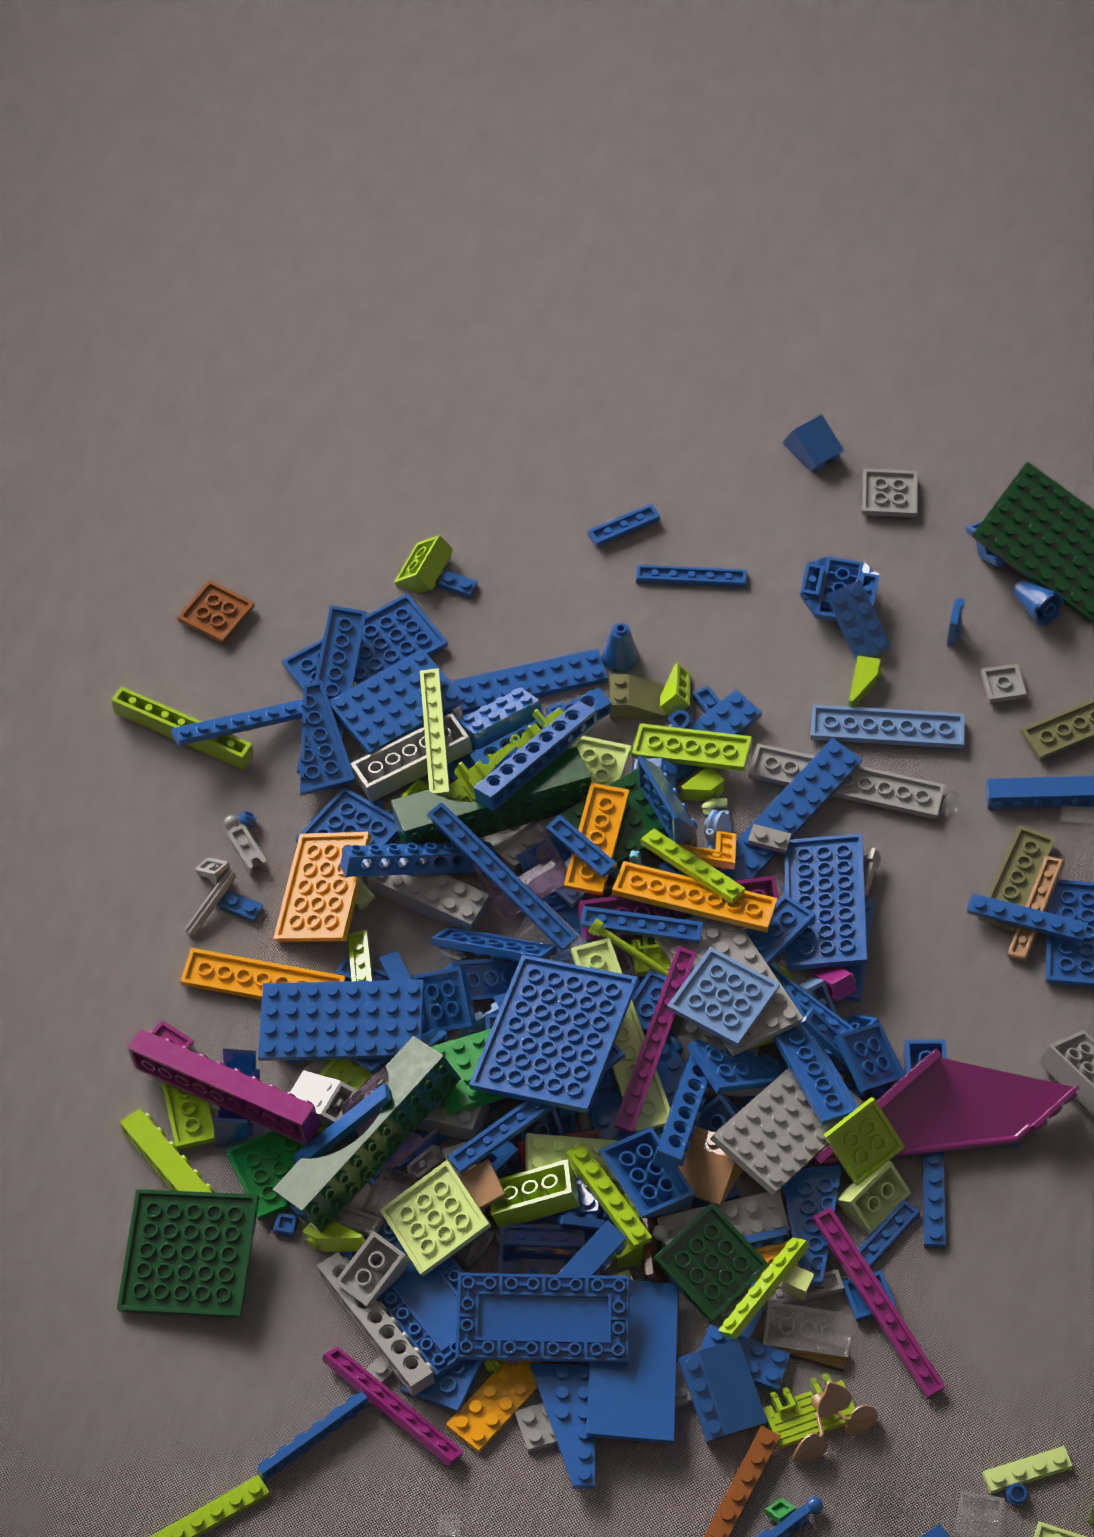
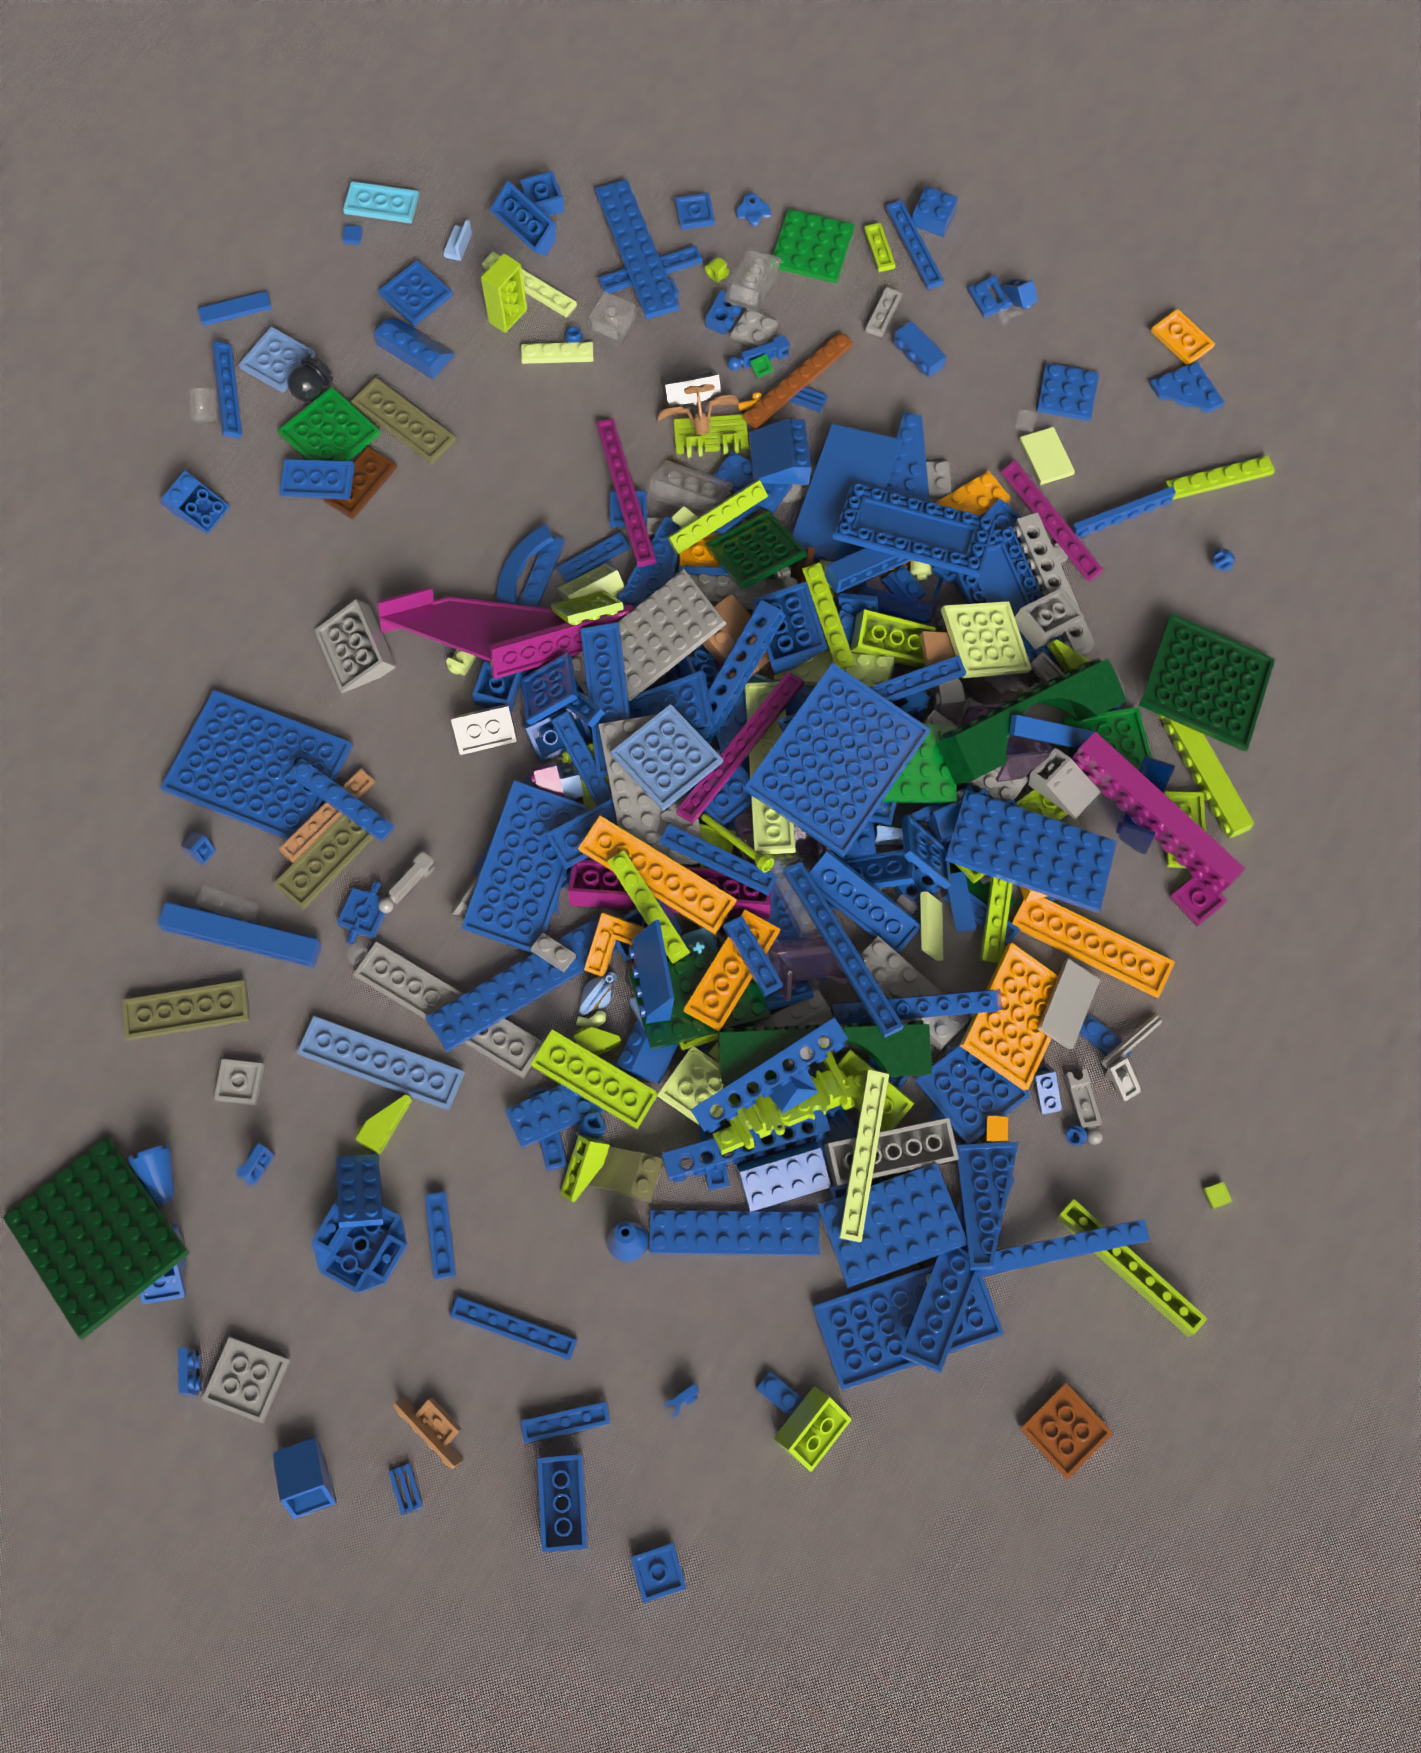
camera: 165 degrees left, 15 degrees up
(111, 806) = (1217, 1195): none -> lime tile
(189, 1407) = (1223, 559): none -> blue gear
(276, 917) = (1068, 1004): none -> light grey tile
(284, 848) = (1047, 1089): none -> bracket
(320, 801) = (996, 1129): none -> light orange panel
(415, 1491) = (1046, 455): none -> yellowish green tile
(421, 945) = (931, 926): none -> yellowish green tile
(517, 455) = (658, 1573): none -> blue plate
(533, 562) = (687, 1396): none -> blue plate
(606, 473) = (562, 1503): none -> blue brick
(709, 1482) = (808, 396): none -> blue tile
(728, 496) = (433, 1426): none -> medium nougat bracket
(735, 458) = (399, 1471): none -> blue tile
(775, 1462) = (746, 405): none -> light orange arm
(778, 619) = (440, 1235): none -> blue plate
(854, 1461) = (674, 388): none -> slope
(921, 1020) = (483, 729): none -> plate
(925, 886) = (422, 867): none -> light grey plate
(935, 480) = (188, 1379): none -> blue plate
(961, 837) = (362, 913): none -> blue plate
(964, 1200) = (517, 561): none -> blue tile

